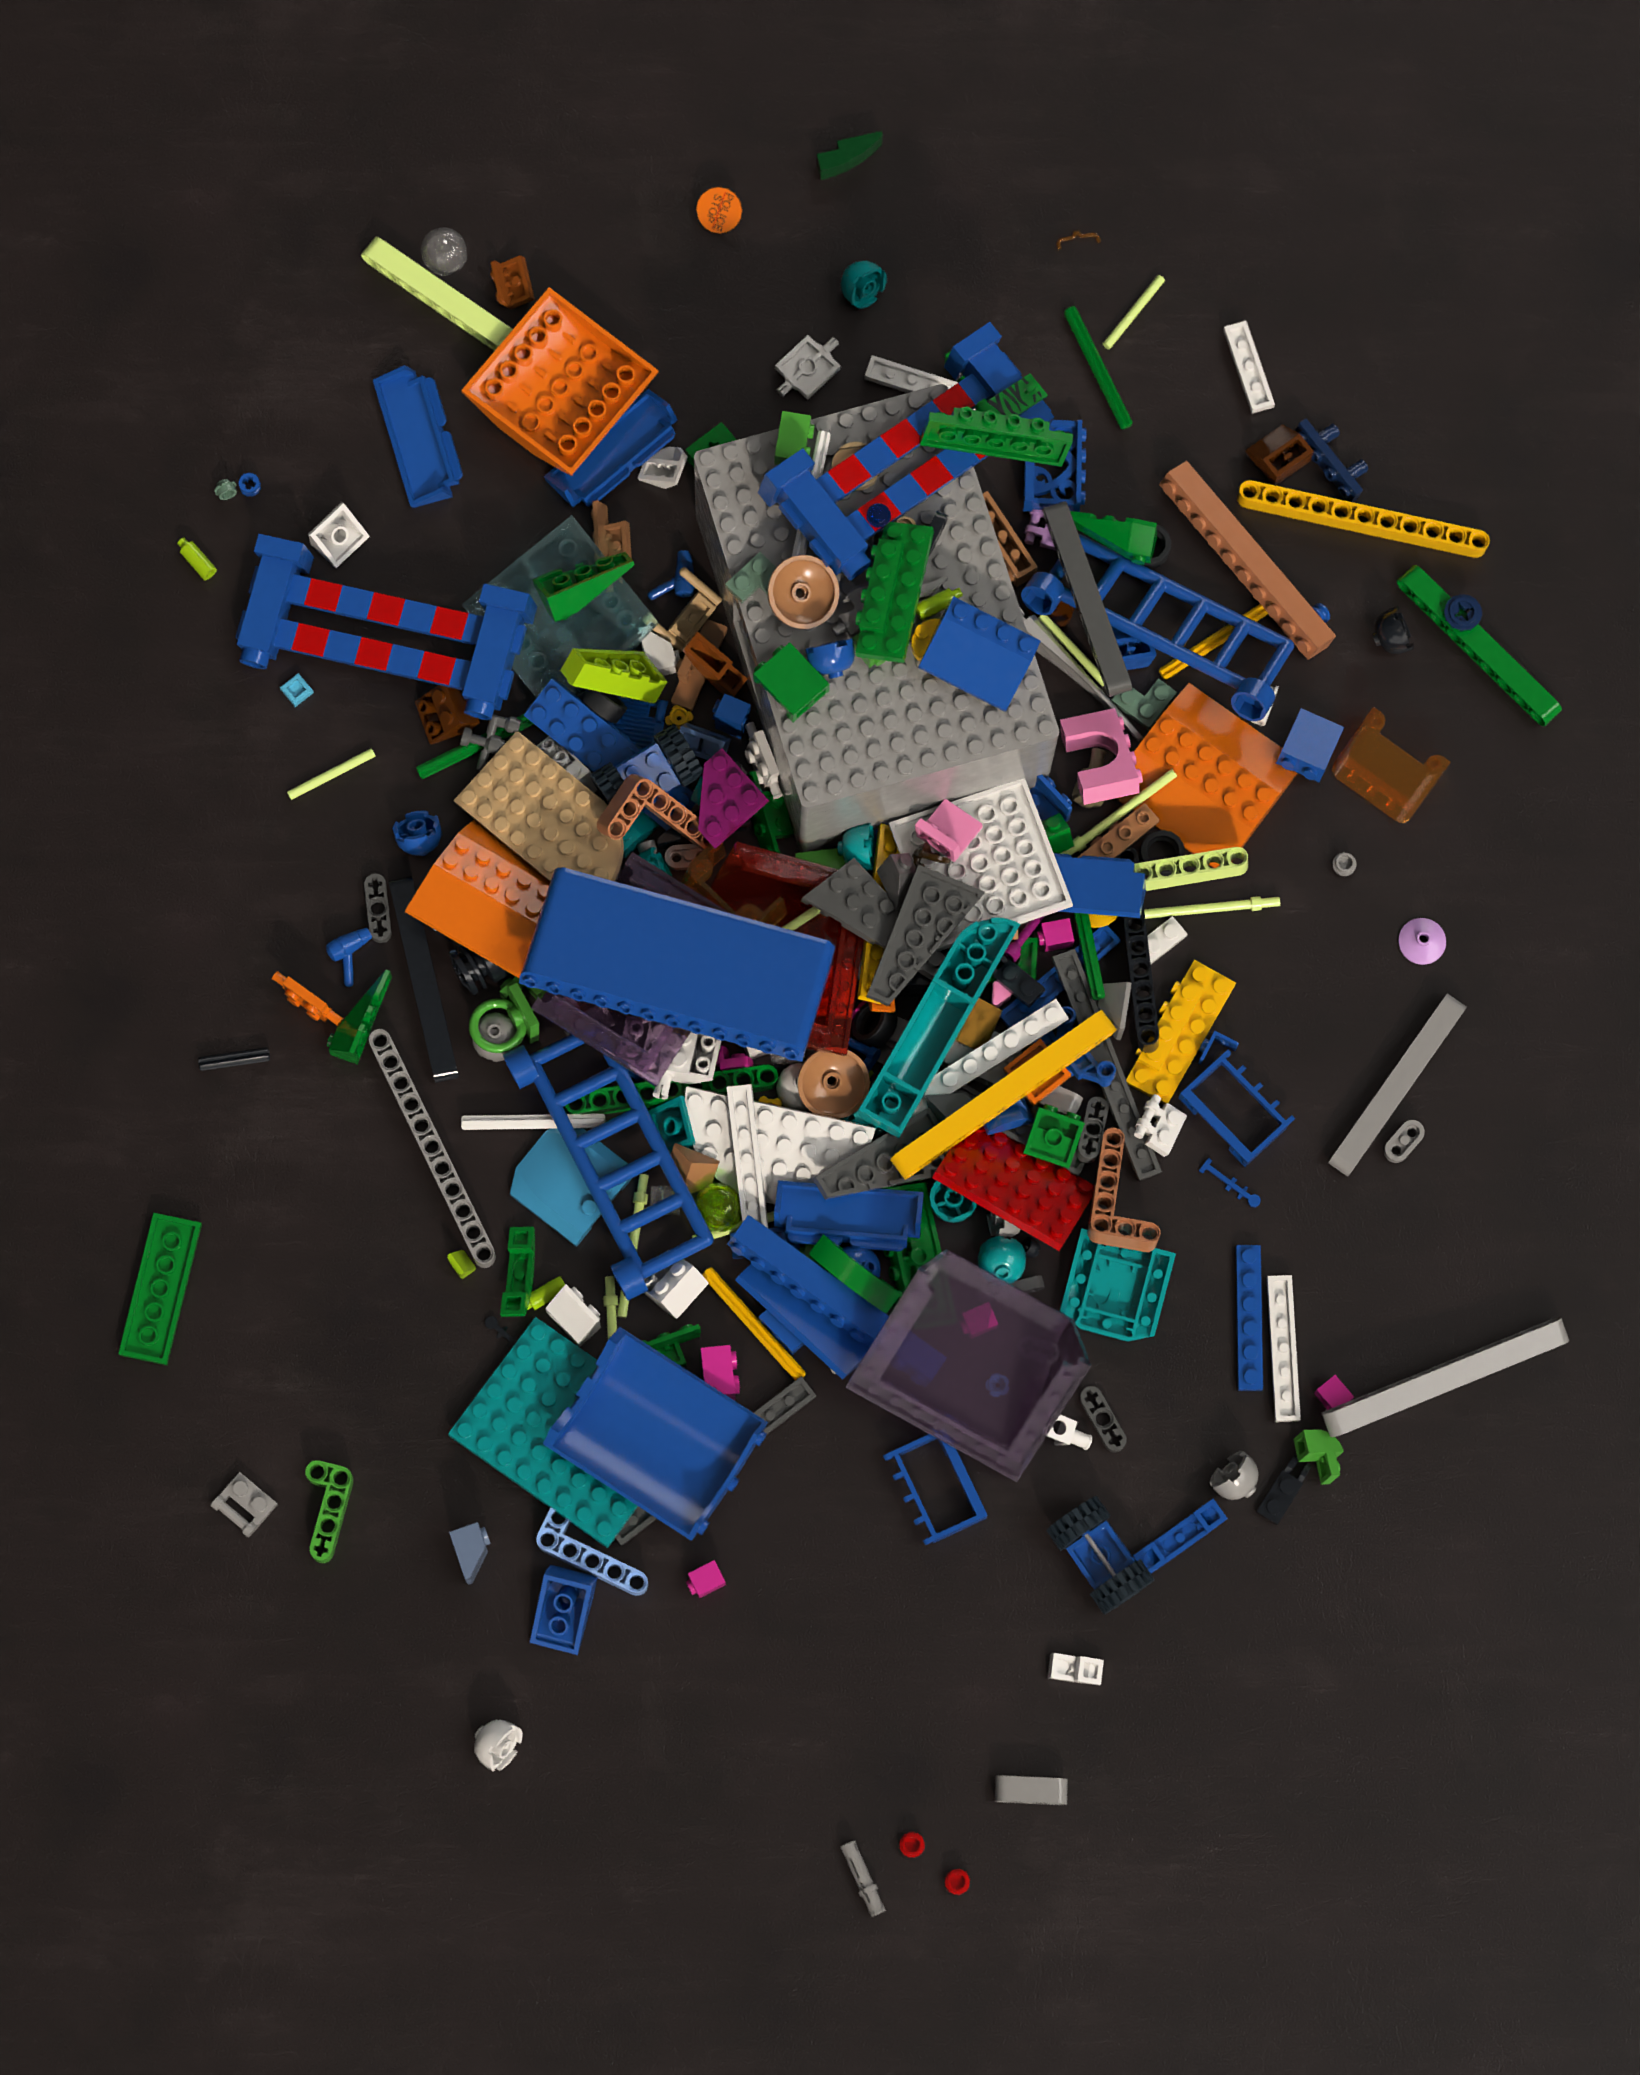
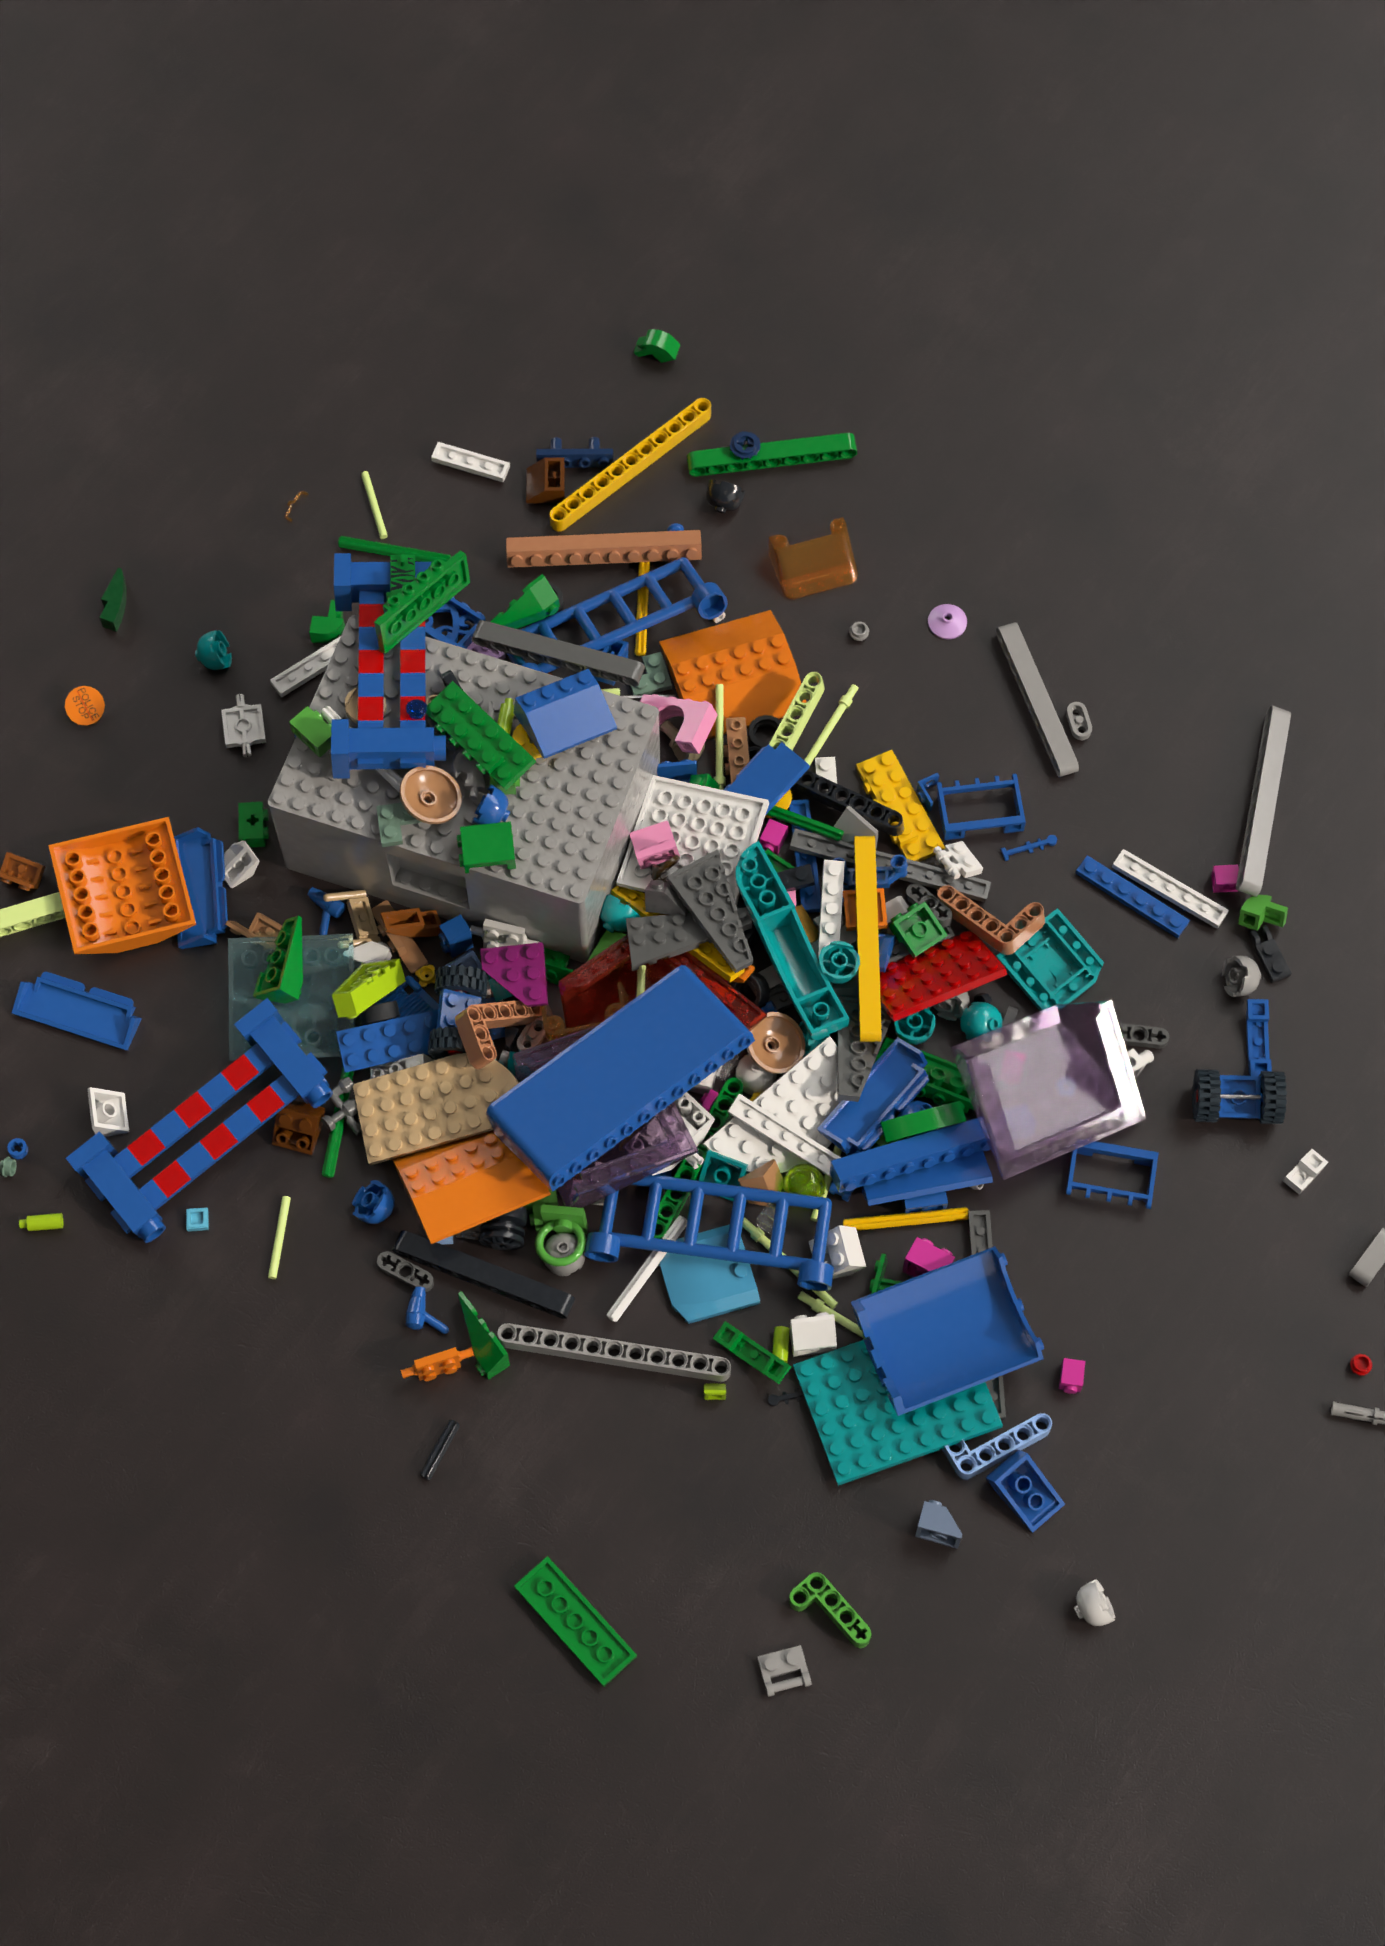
camera: 50 degrees left, 10 degrees down
(954, 1084) = (839, 962): none -> teal cylinder
(1310, 745) = (763, 595): blue brick -> none
(1517, 450) = (659, 344): none -> green brick

